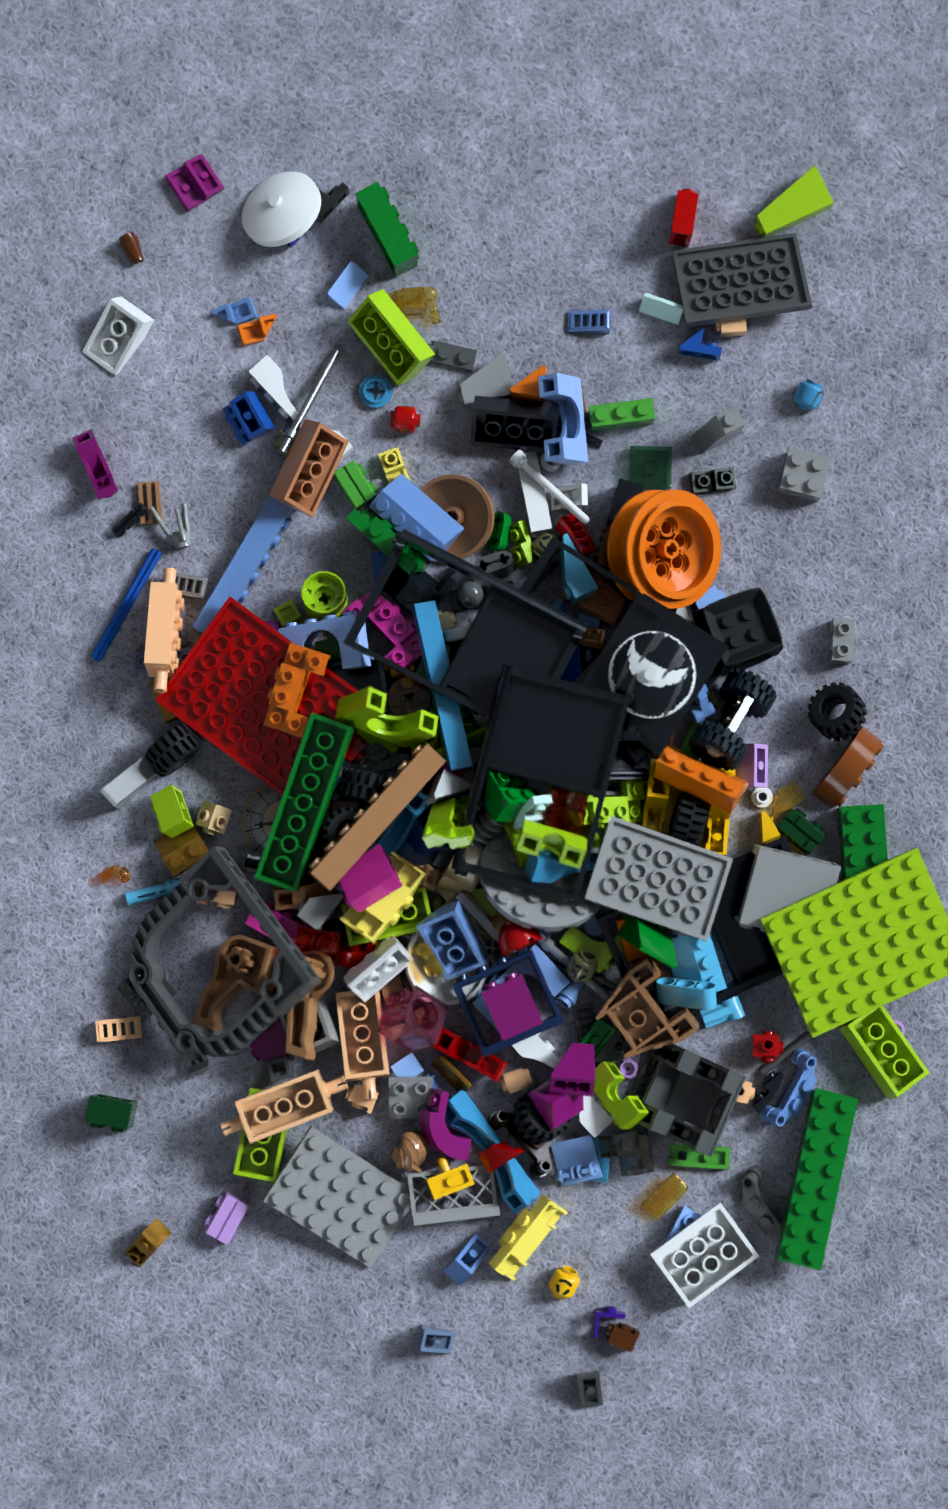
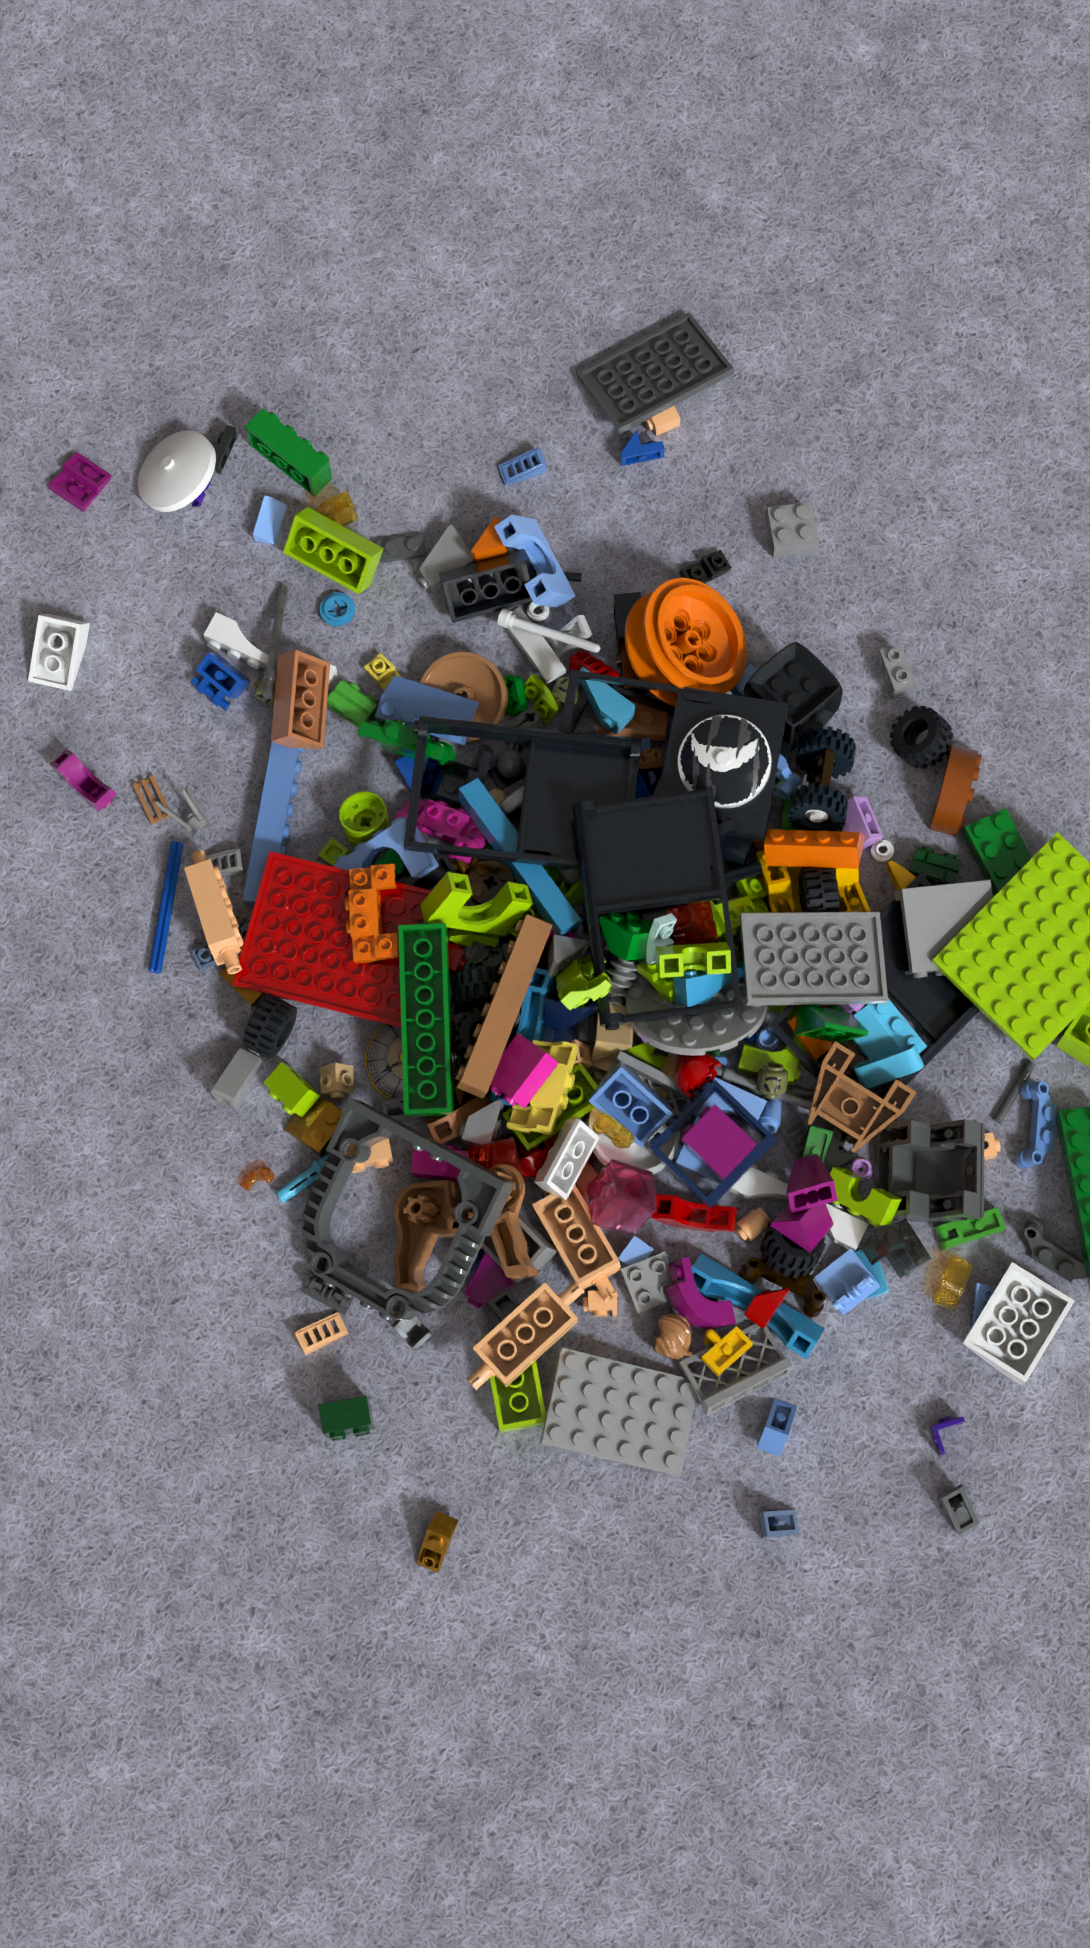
camera: 15 degrees left, 10 degrees down
(129, 520) = (138, 822): black axle -> none
(131, 246) = (40, 563): reddish brown cone -> none
(226, 1218) = (510, 1482): lavender brick -> none
(237, 312) = (170, 586): medium blue slope -> none
(256, 330) = (195, 597): orange slope -> none
(404, 419) = (377, 624): red head -> none
(431, 296) = (358, 500): clear yellow bar -> none
(451, 1074) = (683, 1244): pearl gold slope -> none
(525, 1236) = (827, 1375): light yellow bracket -> none
(564, 1282) = (886, 1411): yellow head -> none
(621, 414) = (590, 540): bright green brick -> none
(621, 1336) = (968, 1442): reddish brown brick -> none
(651, 466) = (637, 575): clear green plate -> none
(661, 308) = (587, 428): light aqua slope -> none
(683, 217) = (575, 338): red slope -> none
(719, 430) = (692, 517): light grey slope -> none
(724, 1011) = (935, 1072): medium azure piece -> none
(761, 1052) = (992, 1091): red brick -> none
(772, 1084) = (1013, 1130): black slope -> none
(786, 799) = (907, 842): clear yellow slope -> none
(796, 204) = (680, 284): lime slope -> none
(808, 395) = (765, 455): dark azure head -> none

